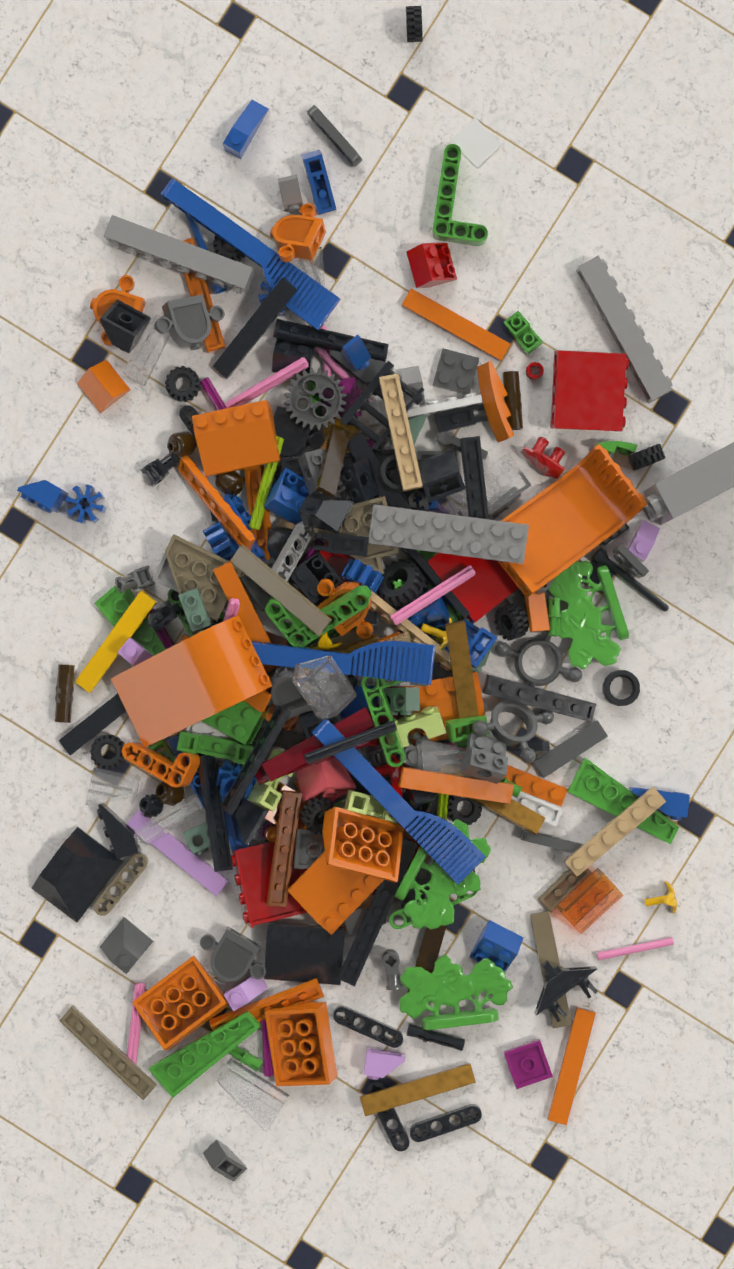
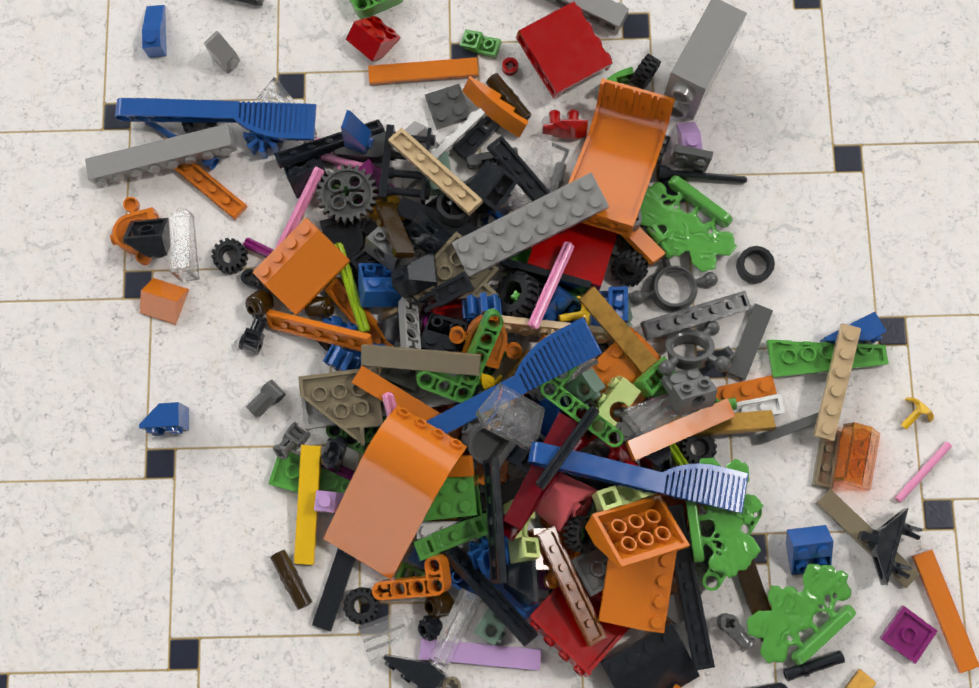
camera: 35 degrees left, 10 degrees down
(79, 508) = (213, 398): blue gear -> none
(141, 529) = (269, 395): none -> dark grey piece
(188, 321) = (201, 200): dark grey piece -> none
(195, 610) = (357, 425): sand green brick -> none
(255, 327) = (260, 171): black tile -> none
(299, 234) = (249, 78): orange piece -> none
(319, 181) = (240, 31): blue slope -> none

